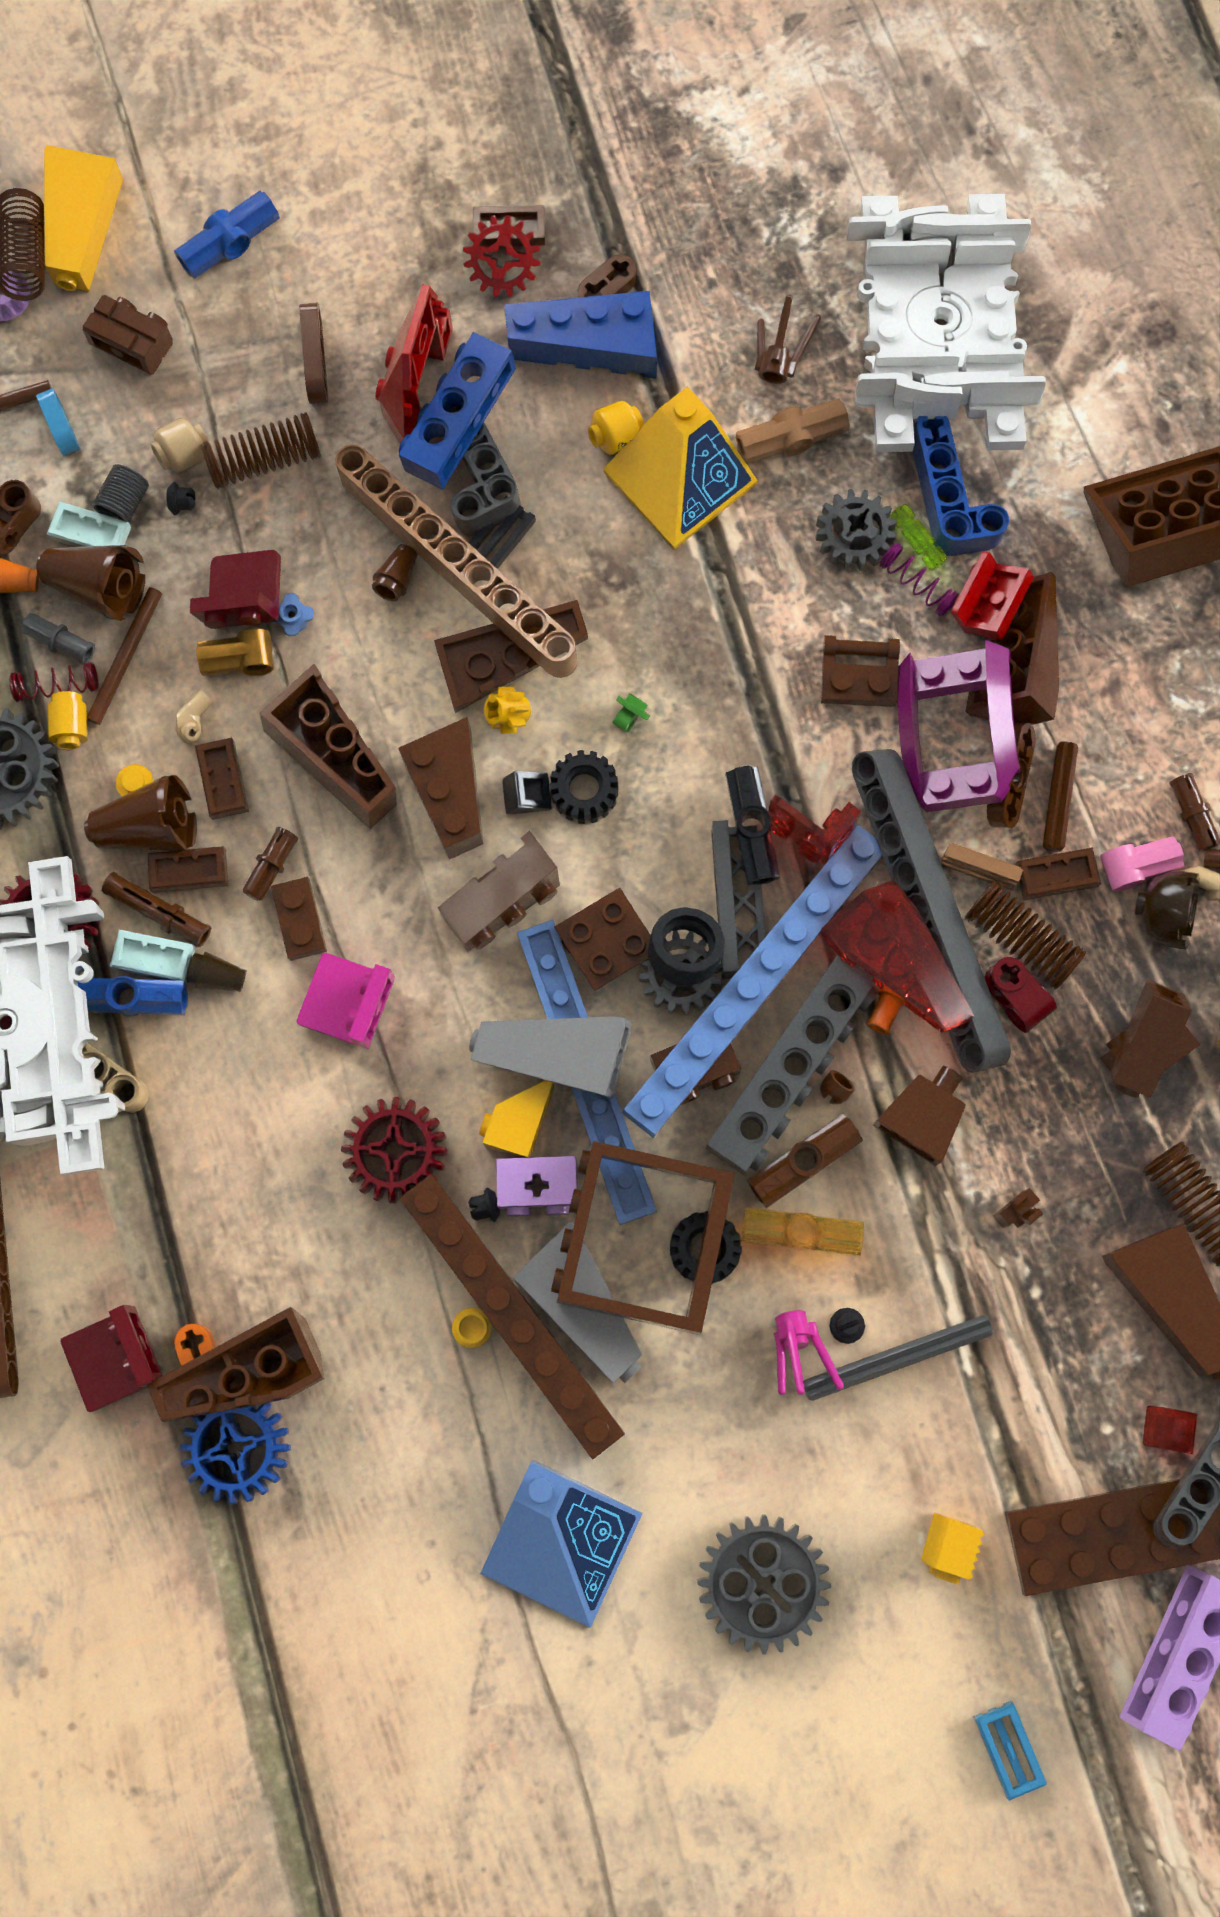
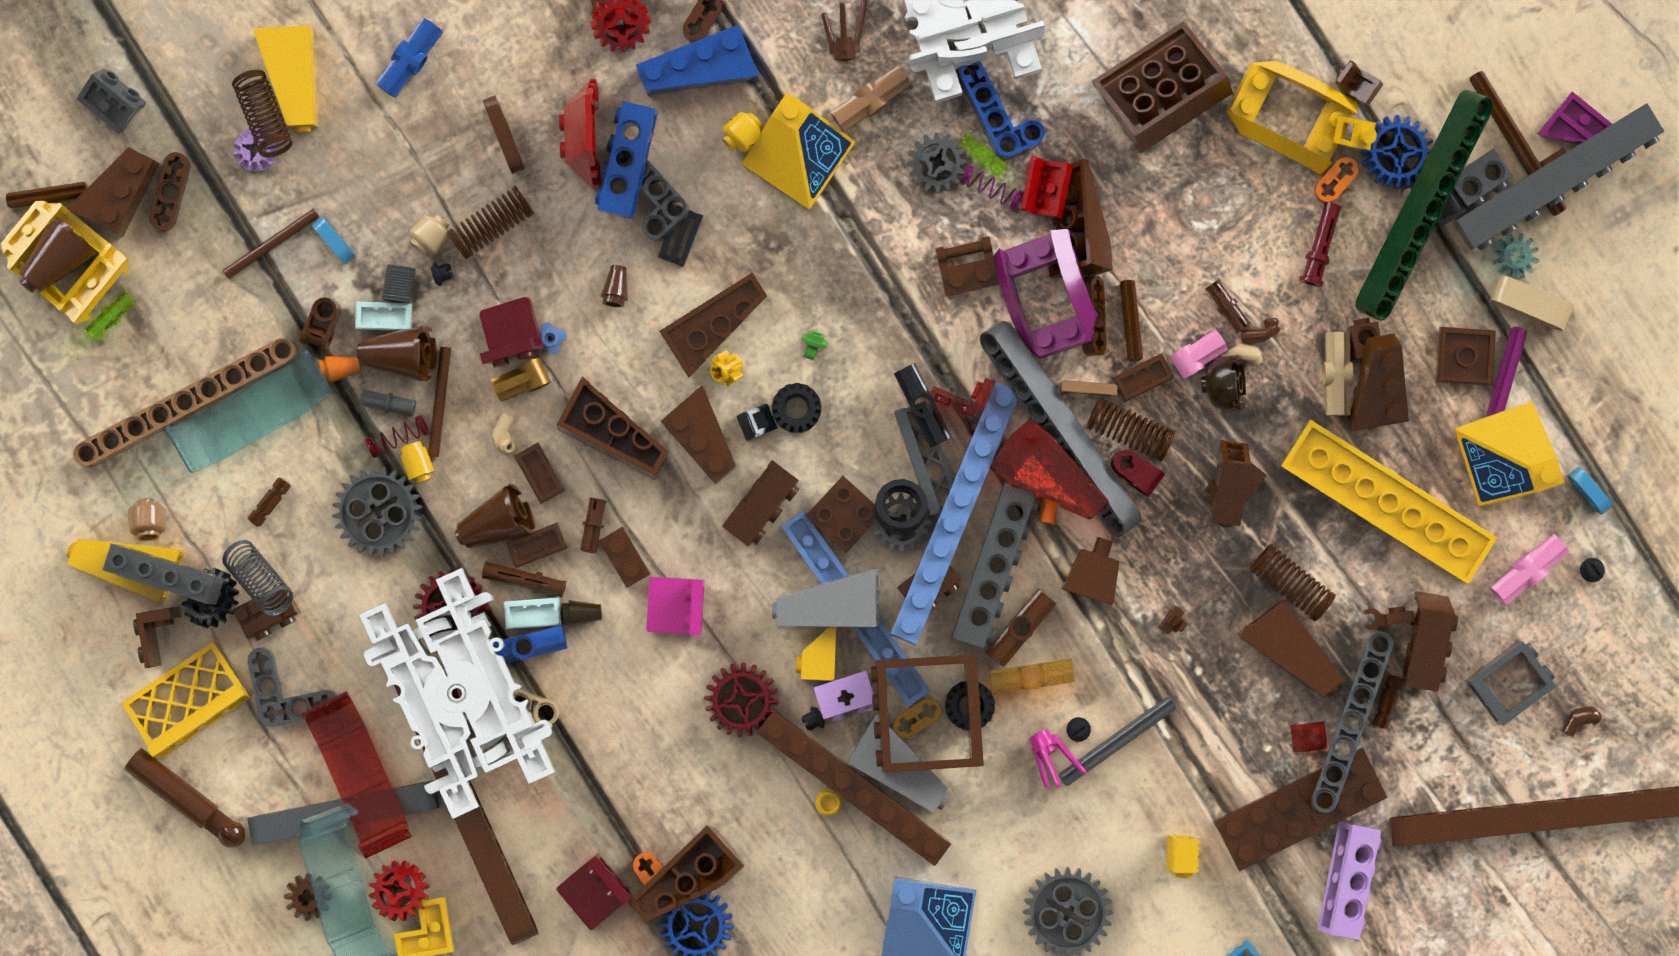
camera: 20 degrees left, 10 degrees up
(128, 334) = (362, 157): reddish brown brick -> none
(132, 778) = (478, 492): yellow plate -> none
(461, 574) = (647, 259): medium nougat beam -> none
(624, 1235) = (921, 723): none -> pearl gold beam
(836, 1086) = (1029, 570): reddish brown hinge -> none

